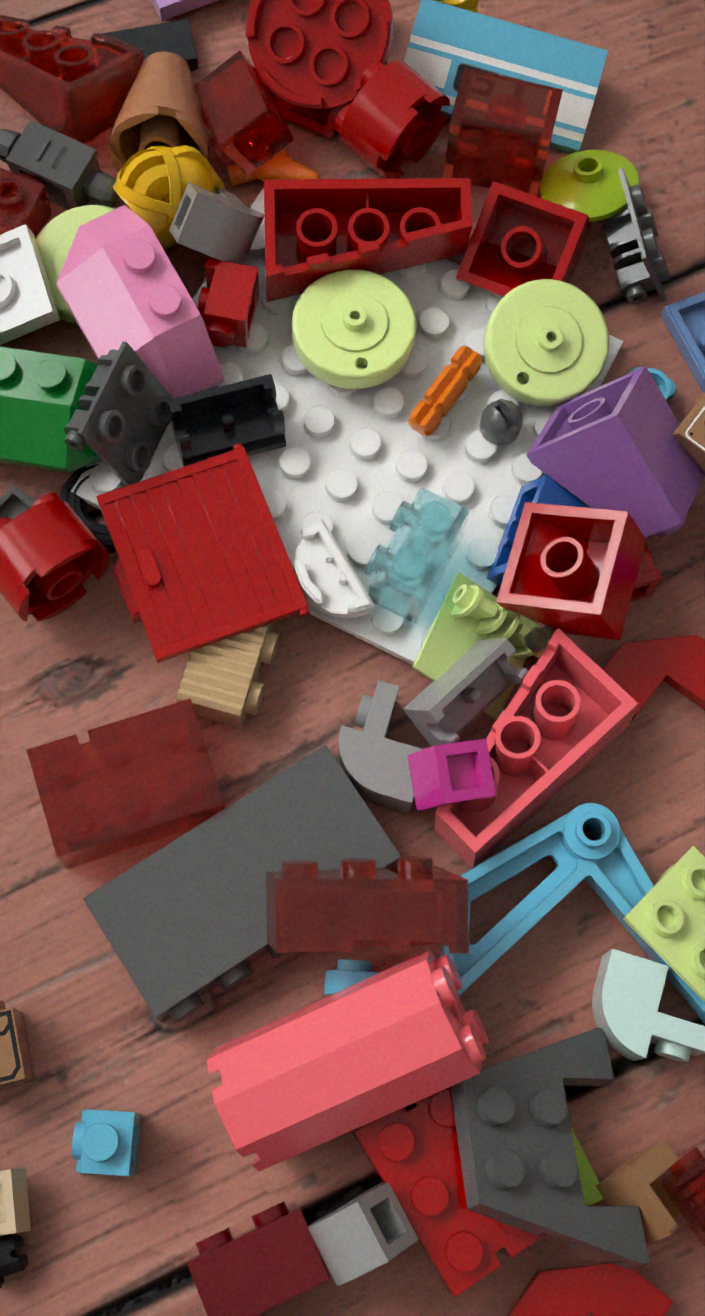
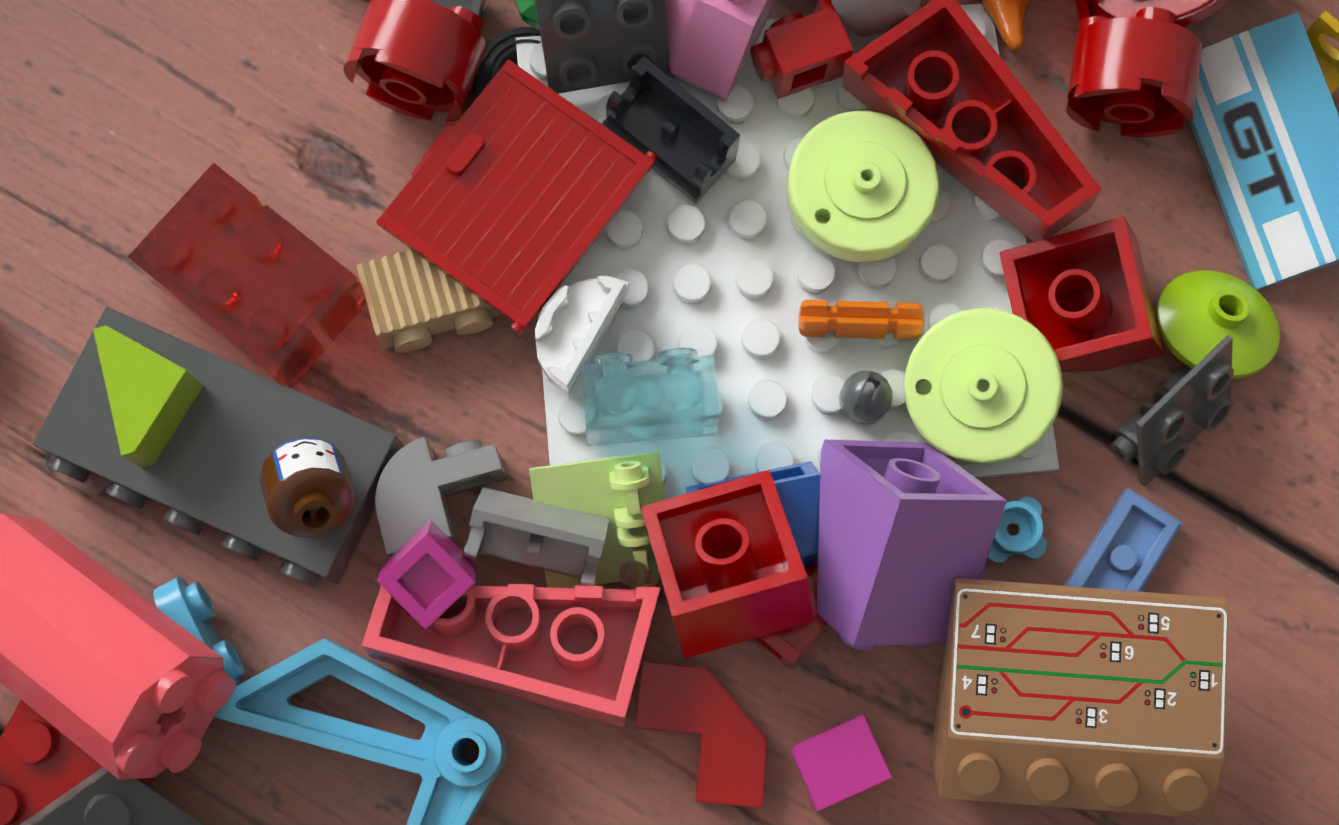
camera: 60 degrees right, 5 degrees up
(176, 897) = (144, 395): none -> lime slope
(336, 818) = (307, 487): none -> reddish brown head
(366, 906) = (236, 568): clear red wedge -> none
(501, 131) = (1198, 192): clear red brick -> none

